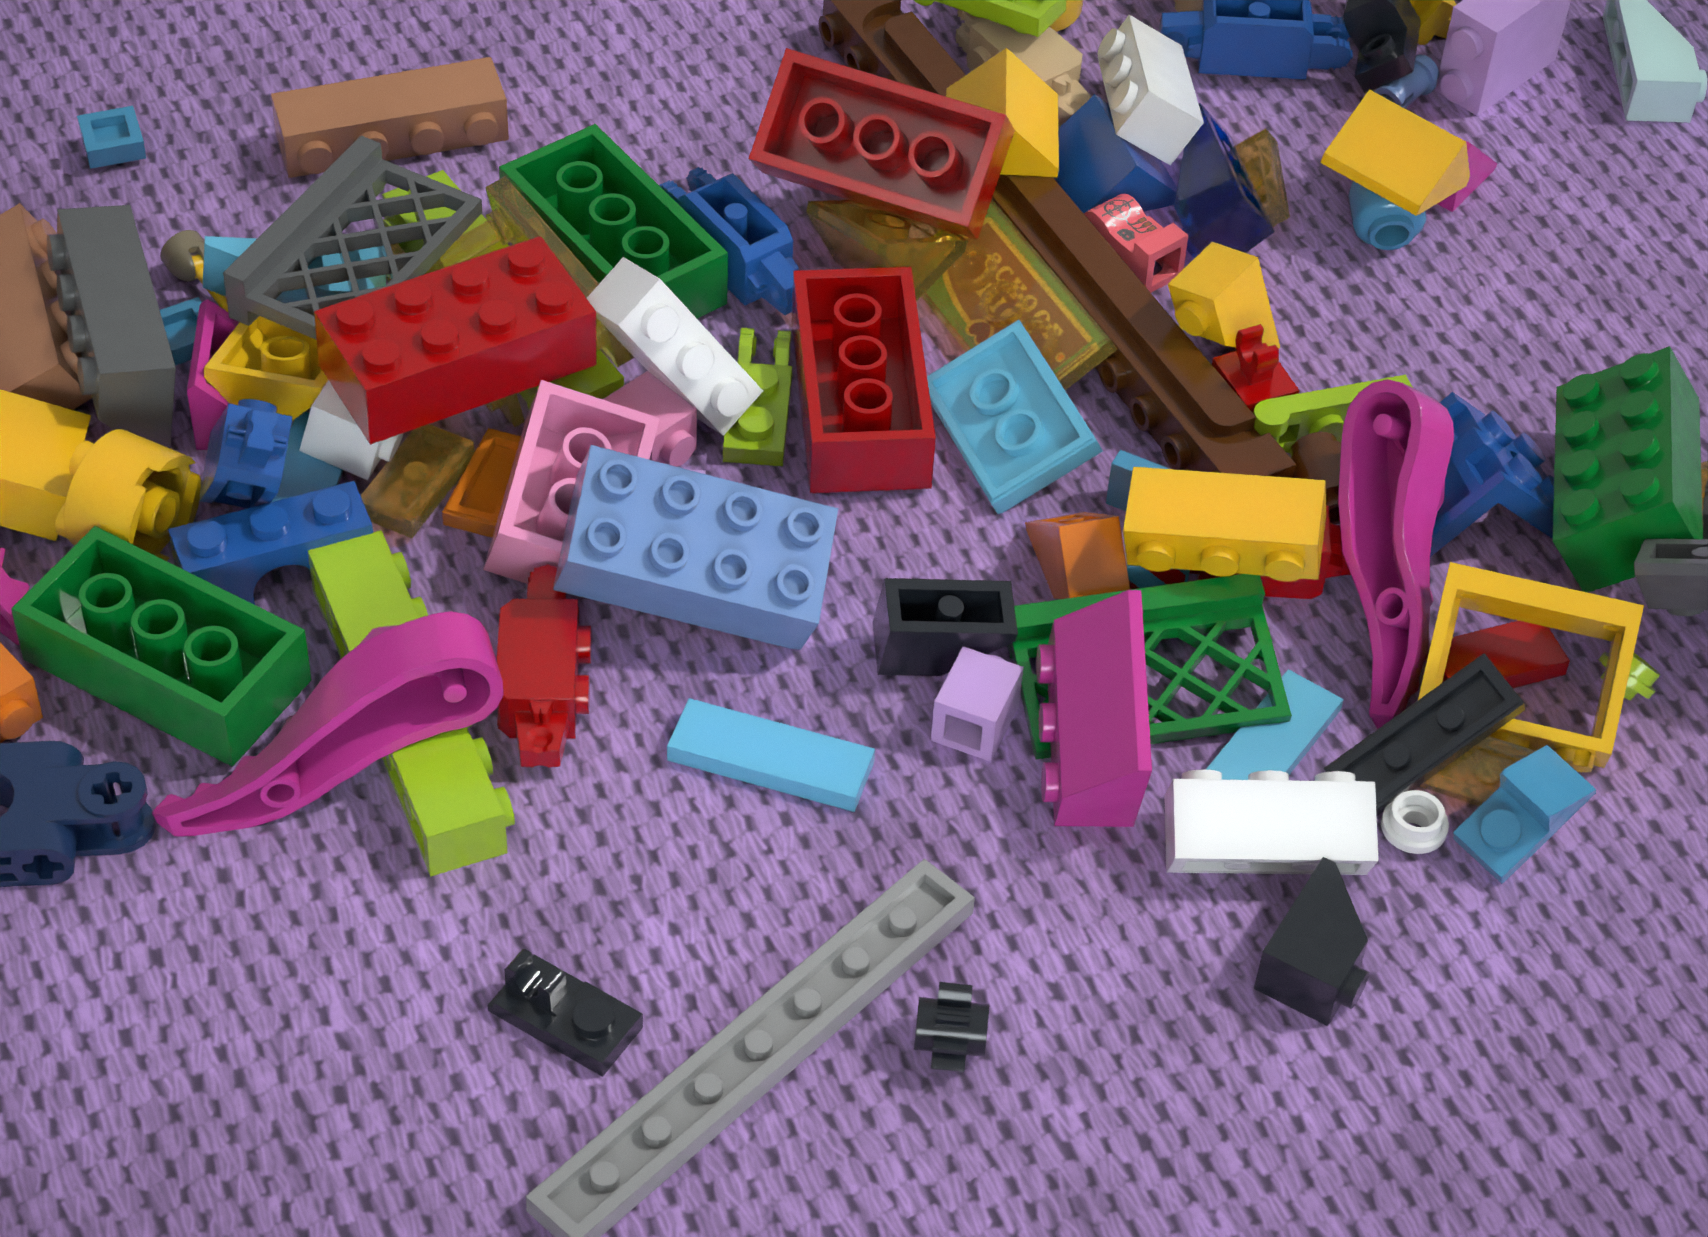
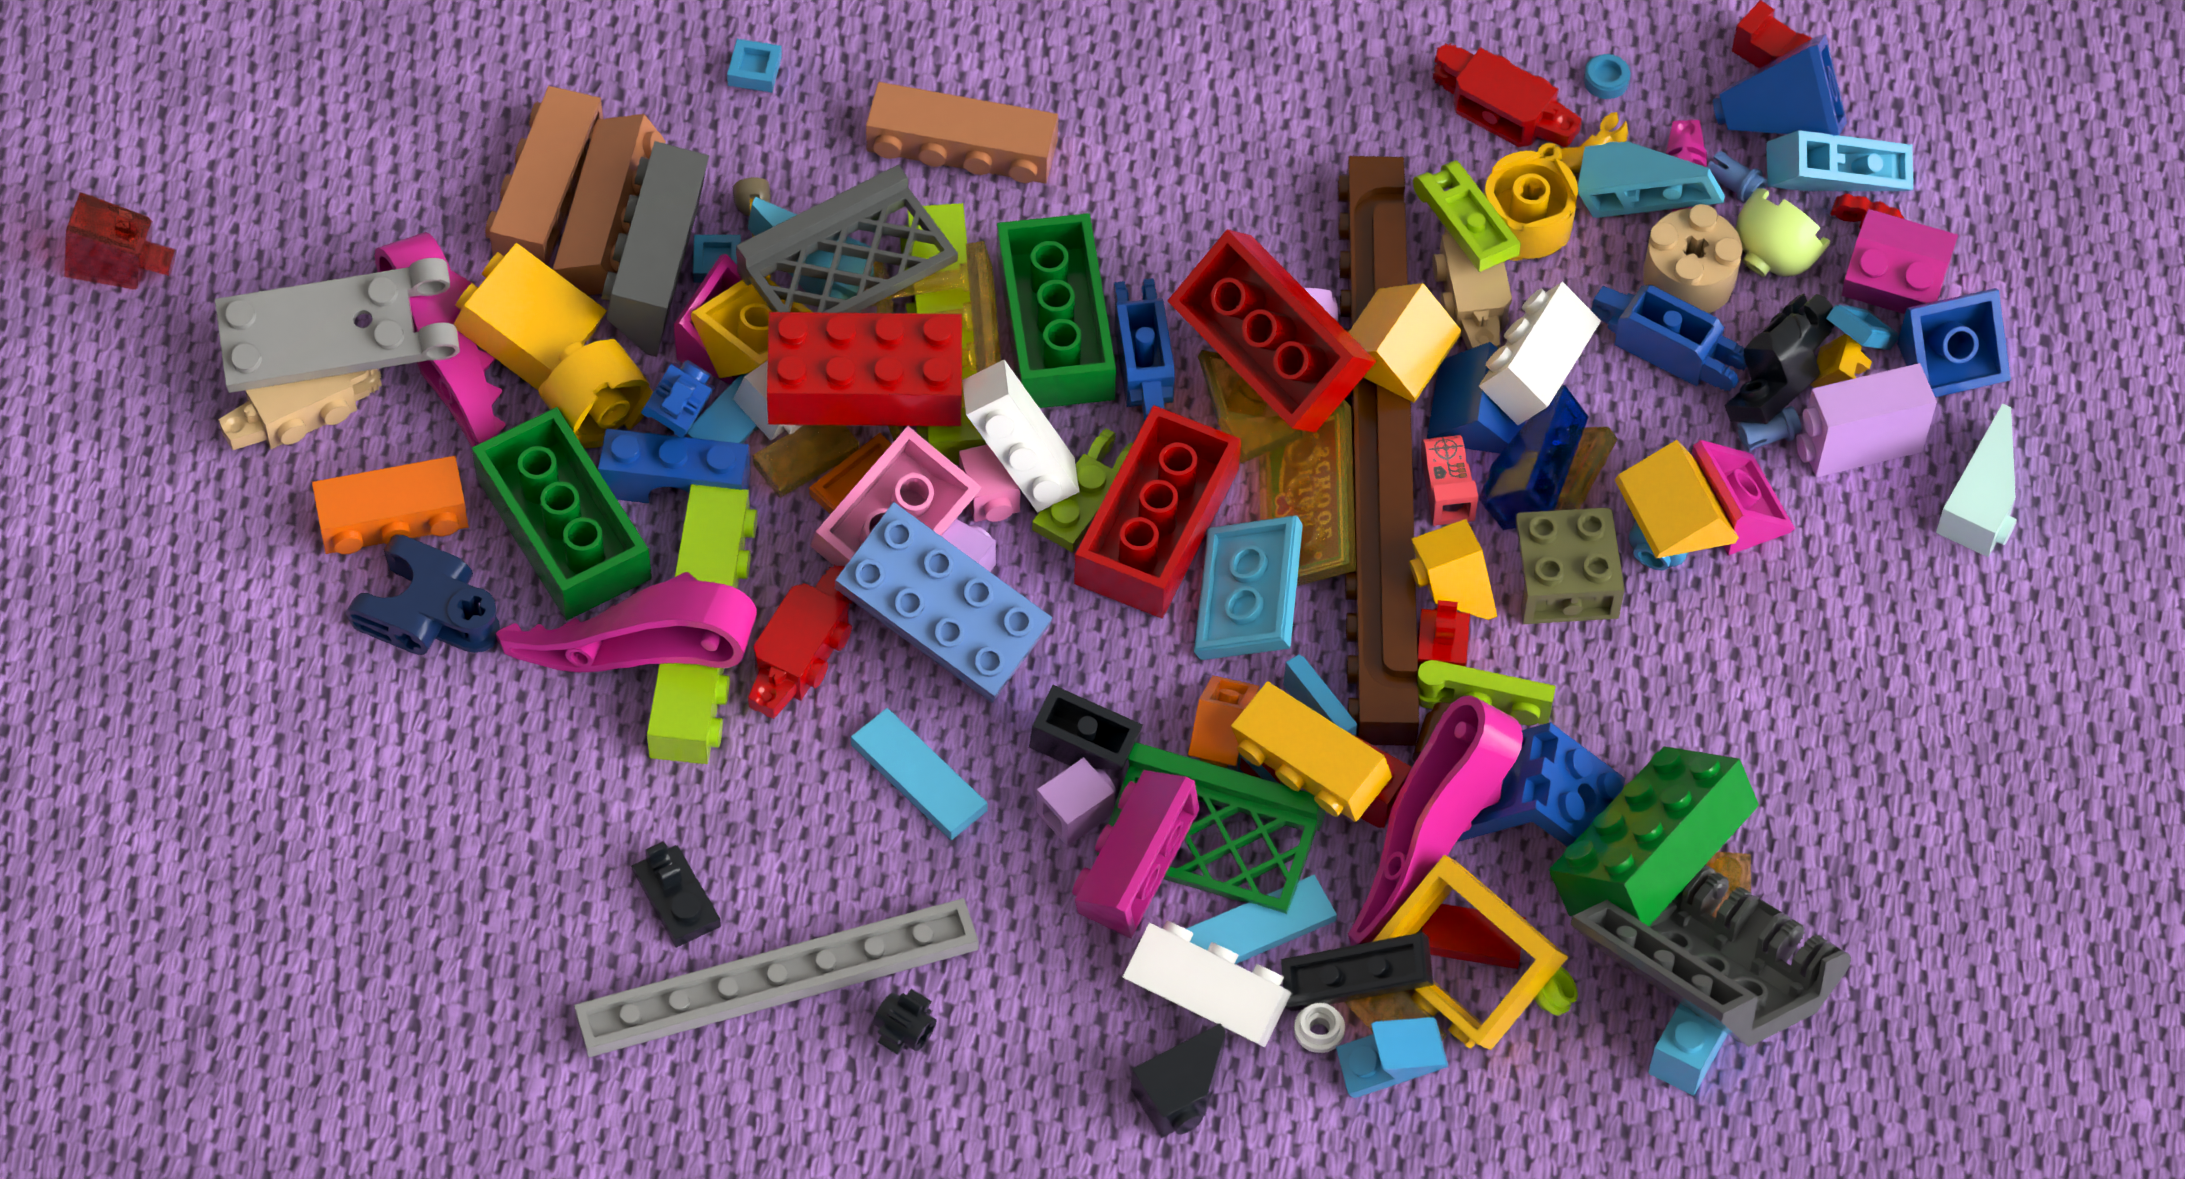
camera: 30 degrees right, 10 degrees up
(1332, 263) = (1569, 565): none -> olive bracket

